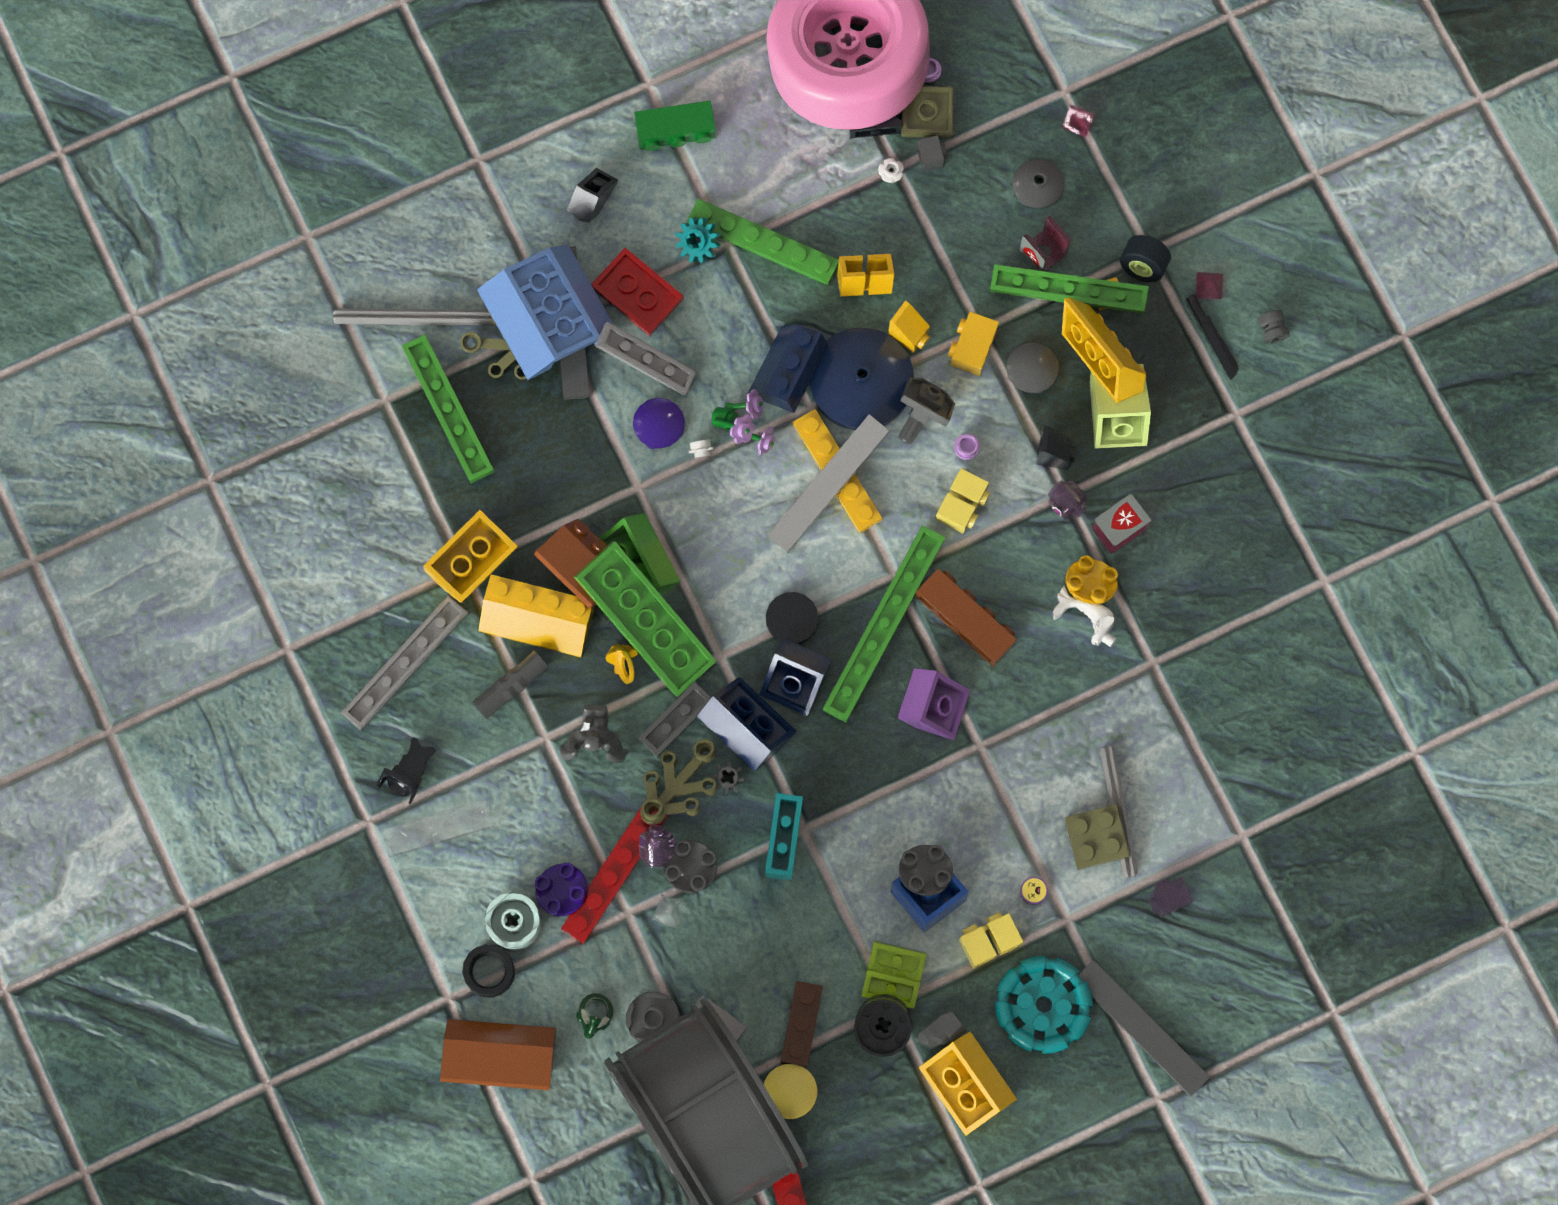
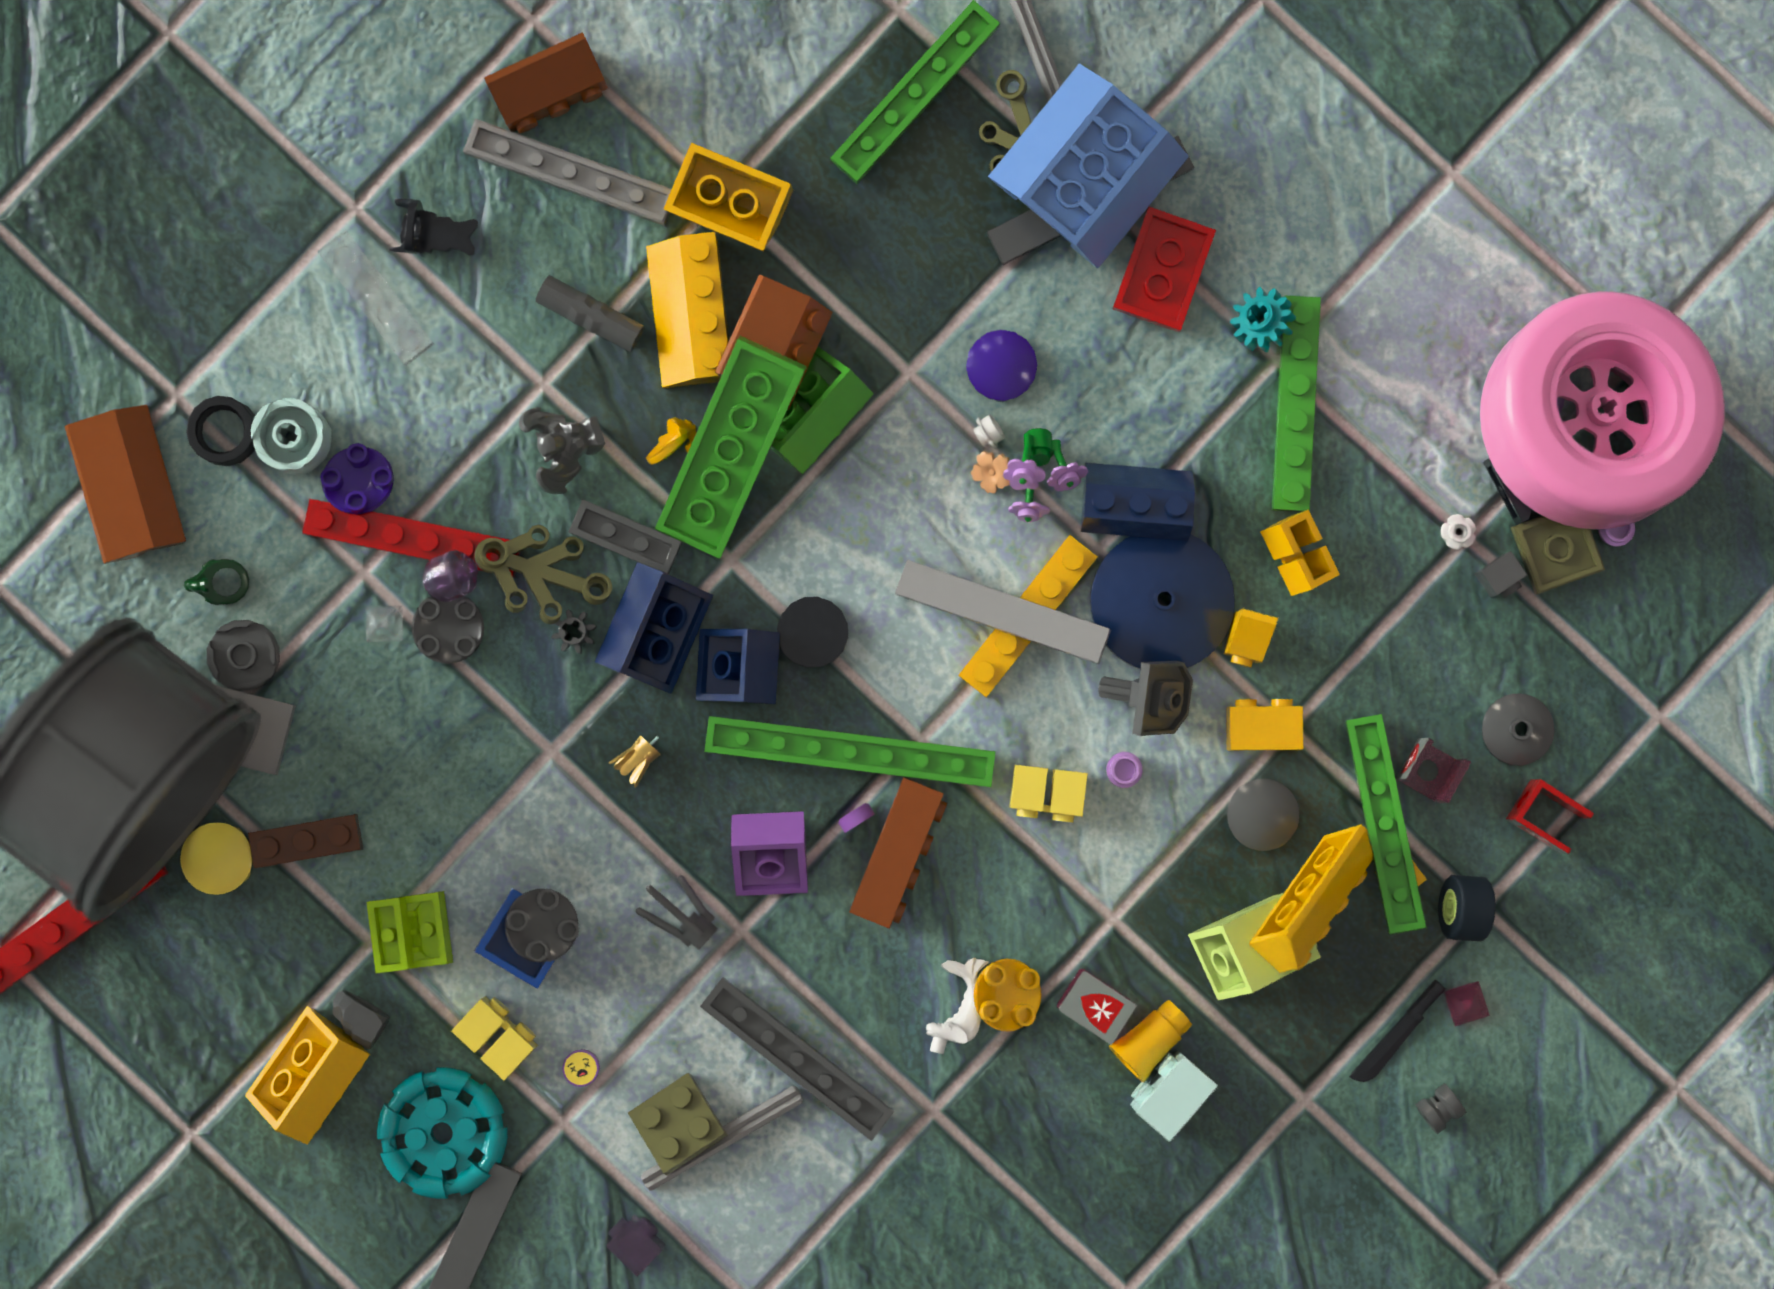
camera: 75 degrees right, 10 degrees up
(340, 651) = (547, 83): none -> dark orange slope
(591, 195) = (1270, 160): black slope -> none
(645, 358) = (1074, 314): light grey tile -> none
(675, 125) = (1406, 229): green brick -> none
(729, 457) = (990, 471): none -> light nougat plant
(783, 836) = (524, 730): teal brick -> none
(832, 766) = (638, 756): none -> pearl gold piece
(876, 1039) = (315, 941): black wheel -> none
(931, 636) = (856, 817): none -> medium lavender tile
(965, 773) = (696, 928): none -> dark grey plant
(1055, 449) = (1162, 886): black slope -> none
(1067, 499) = (1101, 925): clear purple head -> none
(1078, 120) = (1624, 750): clear pink slope -> none
(1082, 739) = (797, 1058): none -> dark grey plate
(1093, 201) = (1525, 801): none -> red piece
(1158, 497) = (1151, 1040): none -> yellow plant
(1199, 494) = (1172, 1094): none -> light aqua brick

